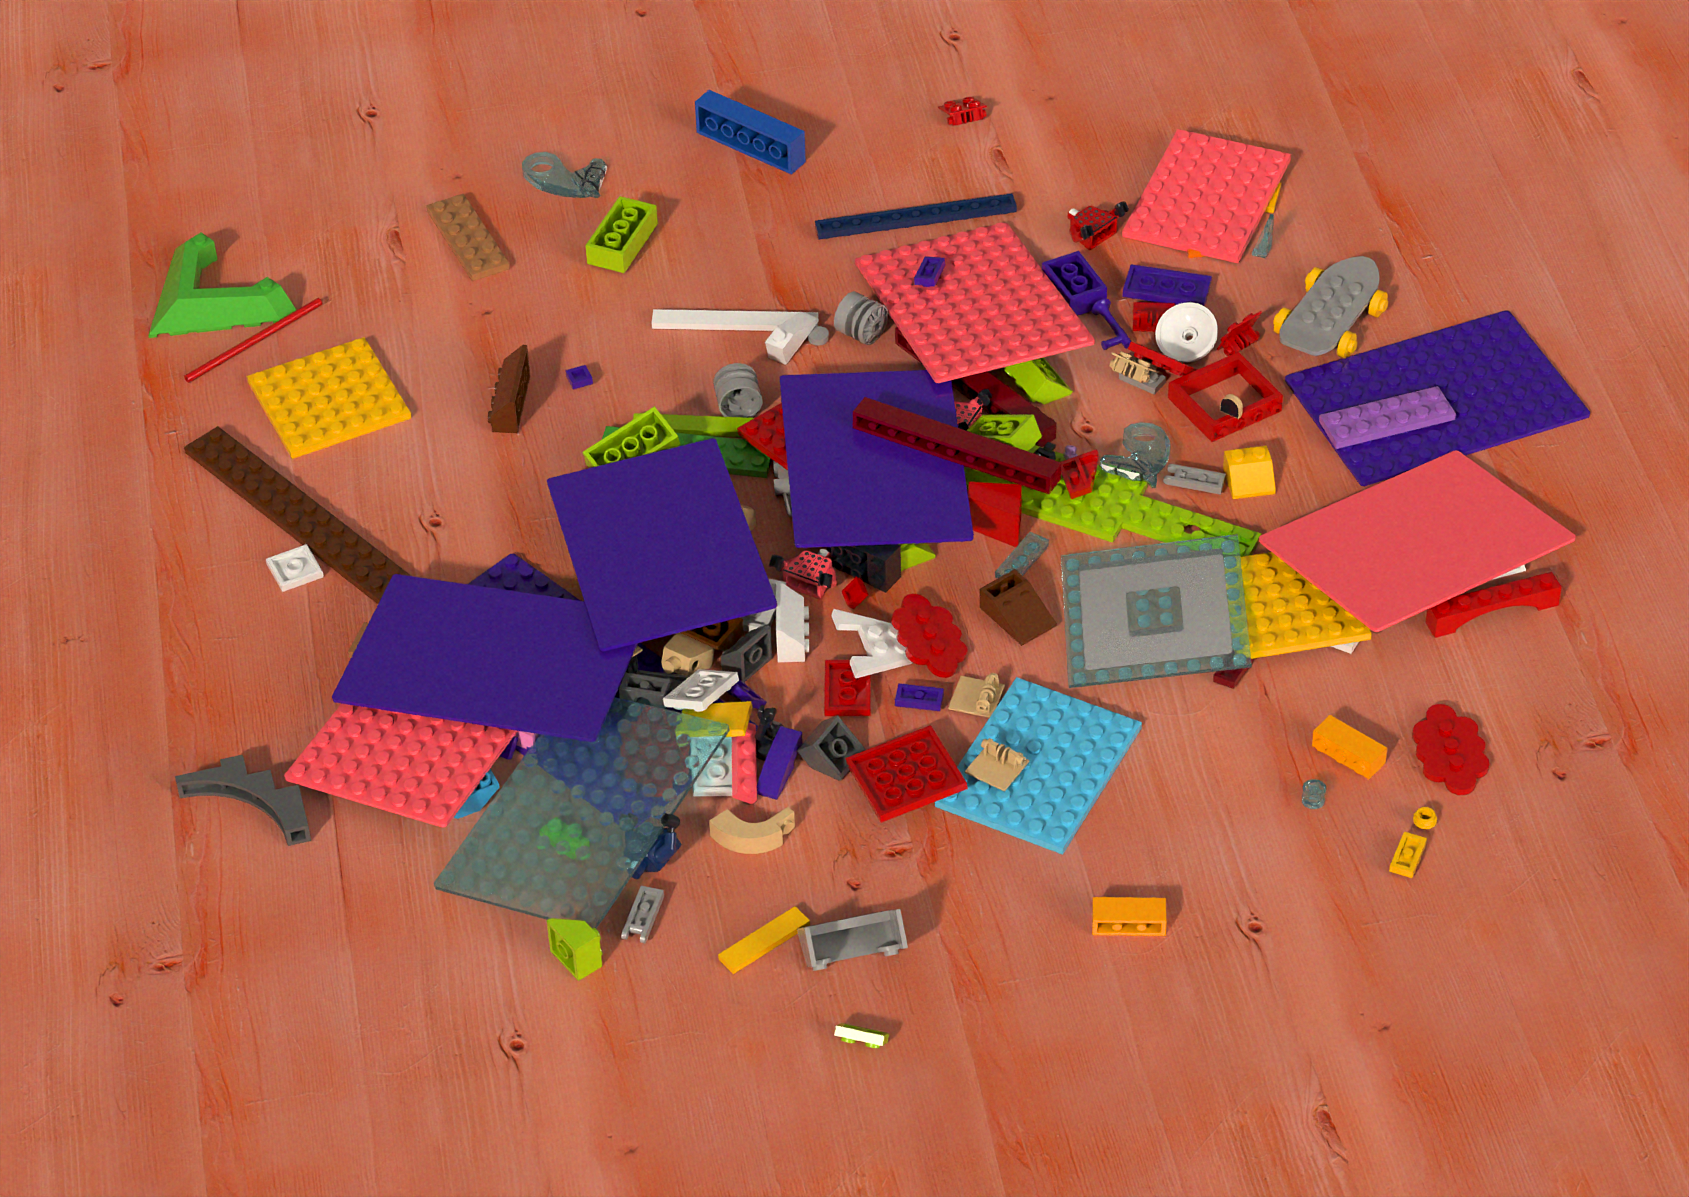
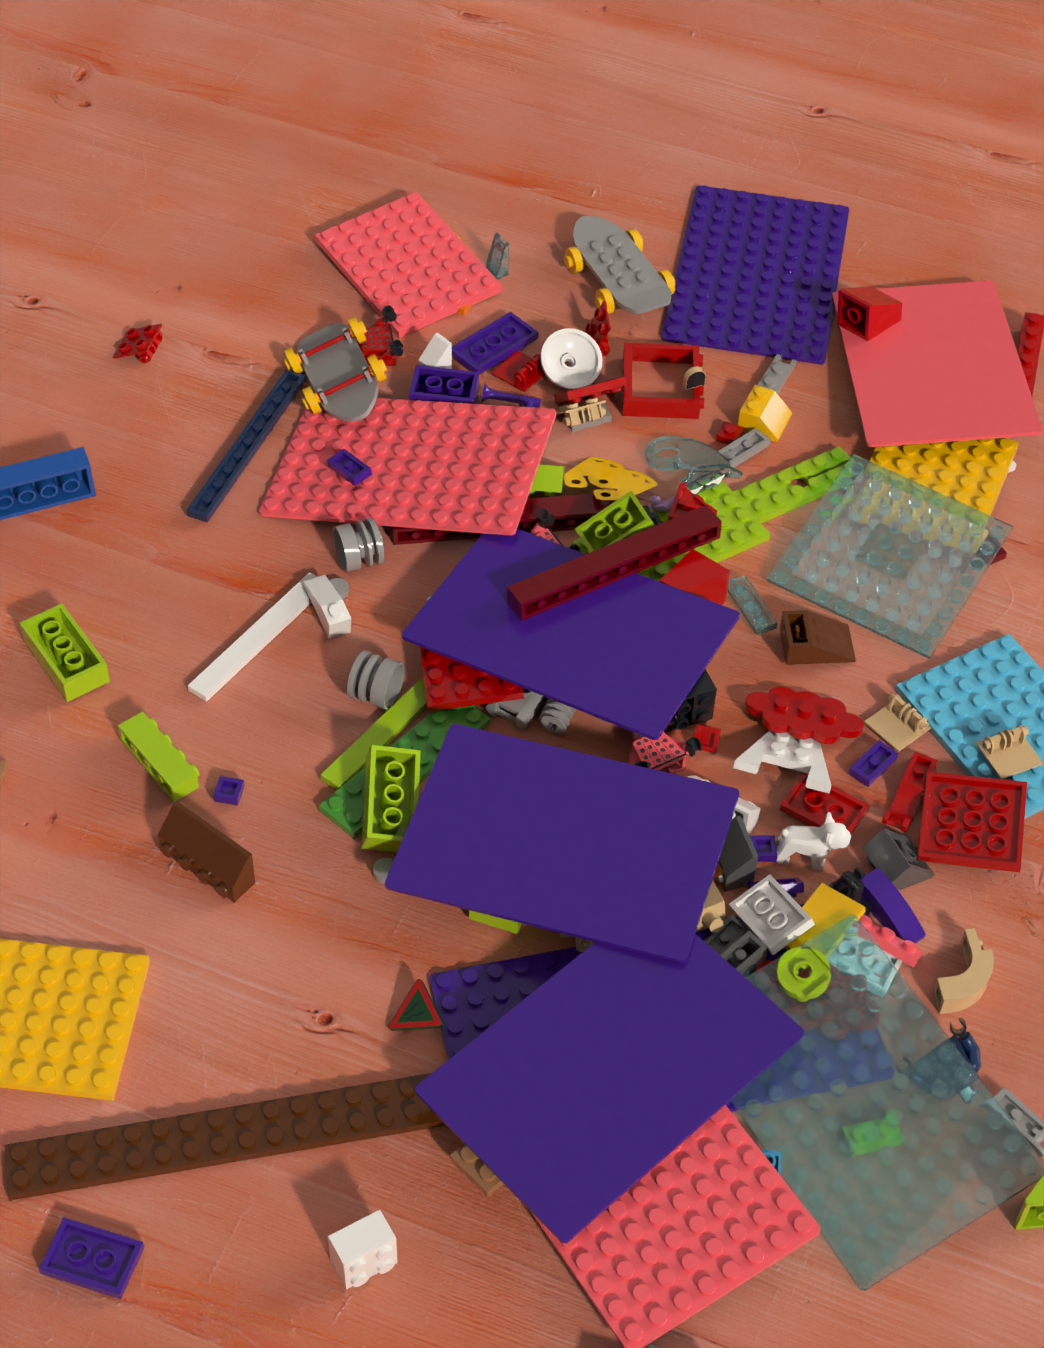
camera: 60 degrees left, 5 degrees up
(170, 506) = (91, 1258): none -> dark purple plate
(262, 616) = (363, 1250): none -> white brick
(294, 568) = (290, 1183): white tile -> none
(471, 558) = (416, 1011): none -> piece
(574, 326) = (159, 756): none -> lime brick
(653, 730) = (803, 988): none -> lime plate
(775, 670) = (765, 847): none -> dark purple plate
(796, 686) = (812, 841): none -> white animal
(944, 727) = (909, 792): none -> red piece
(1030, 218) = (338, 371): none -> light grey piece
(1083, 419) = (616, 476): none -> yellow piece
(1105, 261) = (437, 353): none -> white slope
(1209, 463) = (729, 432): none -> red plate
(1310, 462) = (777, 374): none -> light grey hinge
(1387, 417) = (768, 307): medium lavender plate -> none
(1434, 470) = (867, 311): none -> red slope

